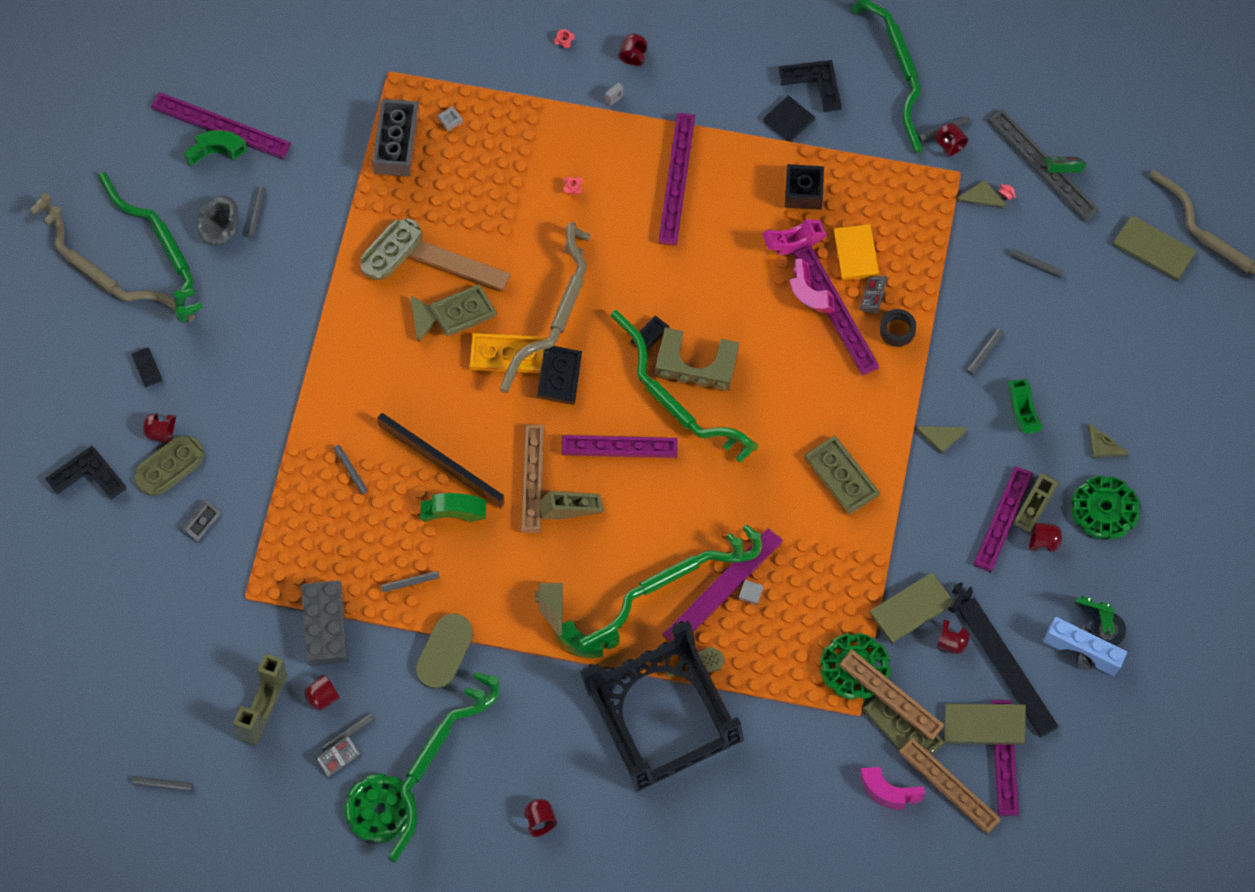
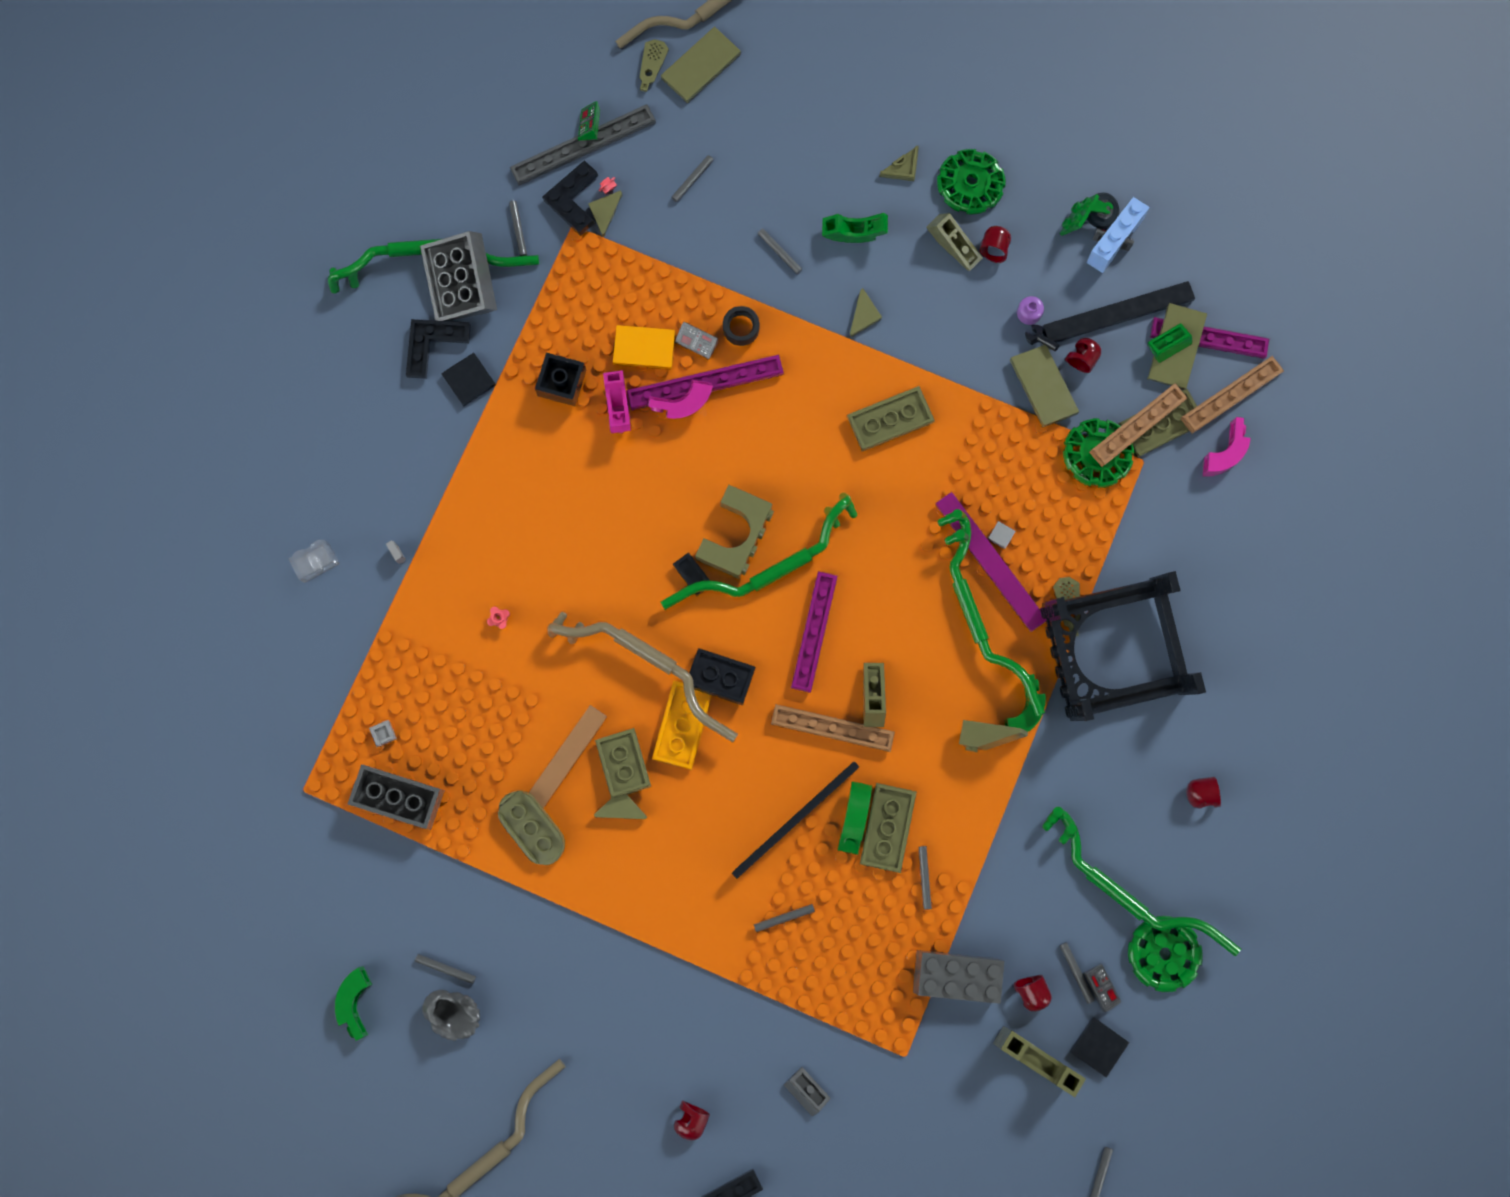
camera: 80 degrees left, 15 degrees up
(146, 367) = (610, 1123): black tile -> none
(169, 246) = (464, 1076): green piece -> none
(169, 465) = (734, 1116): olive tile -> none
(211, 121) = (324, 992): magenta tile -> none
(282, 764) = (1099, 1047): none -> black tile
(444, 651) = (1007, 855): olive tile -> none
(450, 542) = (888, 827): none -> olive tile
(564, 34) = (305, 591): coral plate -> none
(591, 33) = (313, 560): none -> clear brick
(633, 44) = (341, 520): dark red helmet -> none
(676, 179) = (515, 508): magenta tile -> none
(881, 88) = (458, 277): none -> dark grey slope
(955, 135) = (531, 219): dark red helmet -> none
(984, 580) = (1030, 310): none -> medium lavender head
(984, 713) = (1170, 342): none -> green slope
(987, 156) = (561, 196): none -> black plate
(1003, 519) = (963, 278): magenta tile -> none
(1143, 208) = (654, 64): none -> olive piece

